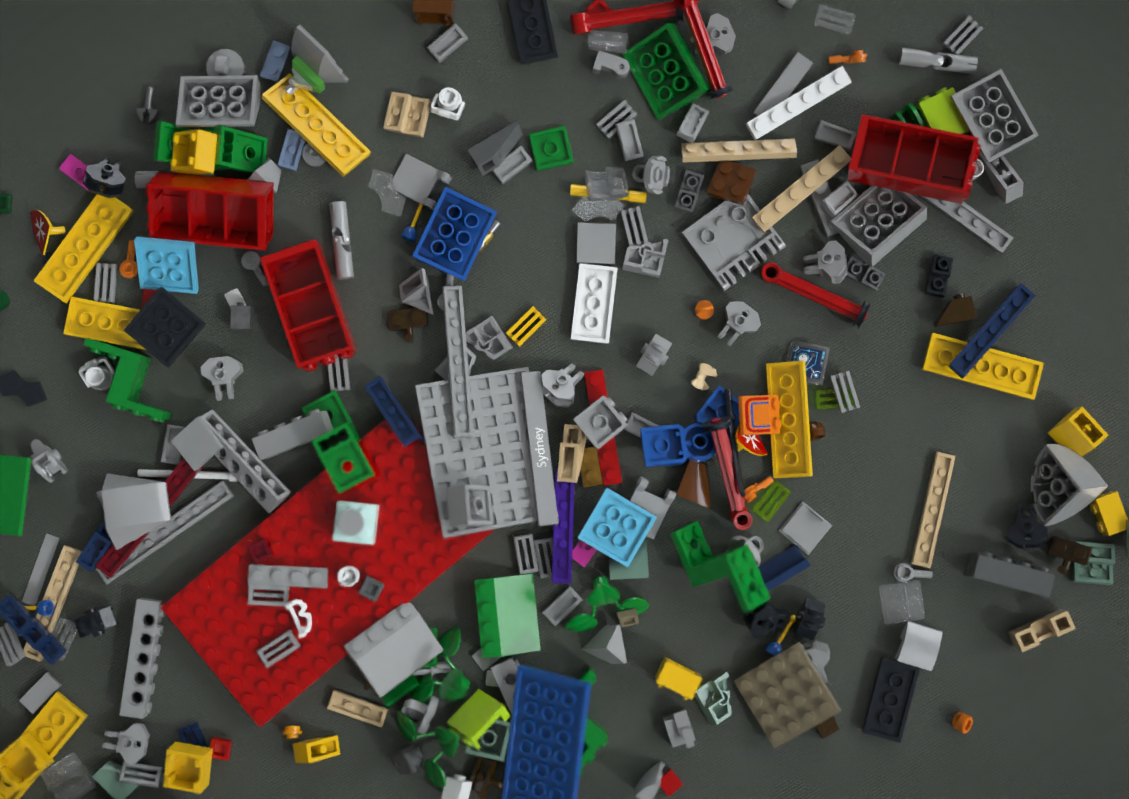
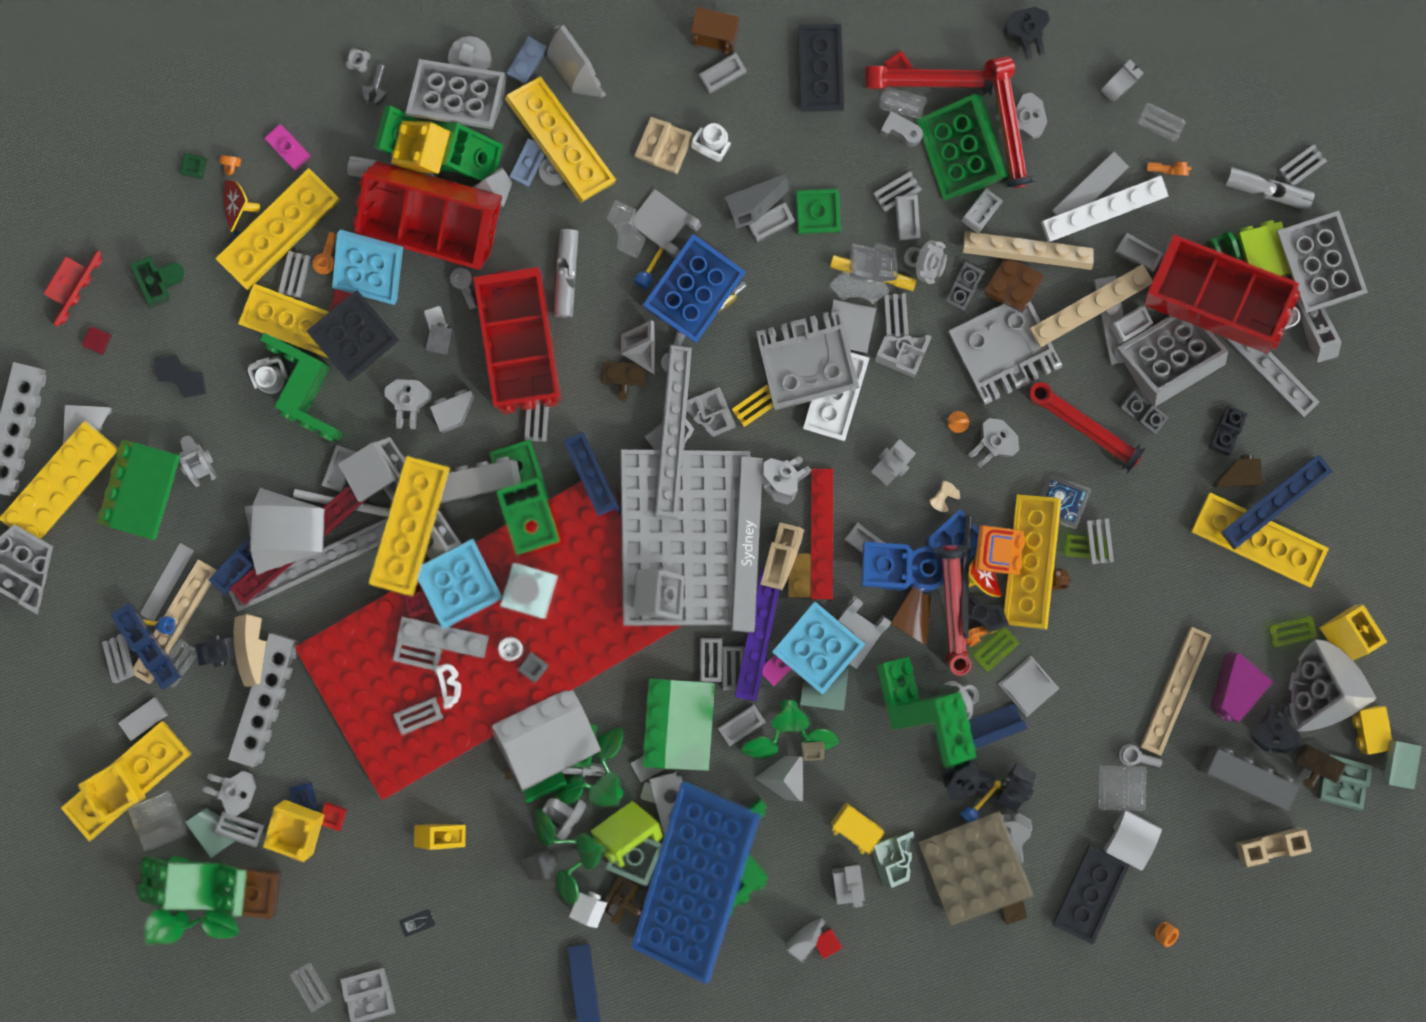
camera: 10 degrees right, 0 degrees up
(32, 196) = (228, 160): none -> orange tile
(105, 177) = (316, 158): black hinge -> none
(121, 615) = (248, 648): none -> tan slope
(124, 82) = (354, 54): none -> light grey plate
(241, 484) = (409, 526): none -> yellow plate
(264, 377) = (452, 412): none -> light grey slope
(292, 732) = (416, 812): light orange plate -> none
(293, 527) = (458, 584): none -> medium azure plate
(304, 78) = (556, 85): bright green piece -> none
(357, 708) = (493, 799): tan tile -> none
(565, 281) = (809, 363): none -> light grey hinge
(601, 421) = (821, 526): light grey plate -> none
(760, 473) = (990, 617): none -> black tile
(831, 262) = (1109, 394): light grey hinge -> none
(986, 498) = (1238, 687): none -> magenta slope
(1010, 446) = (1274, 636): none -> clear neon green tile

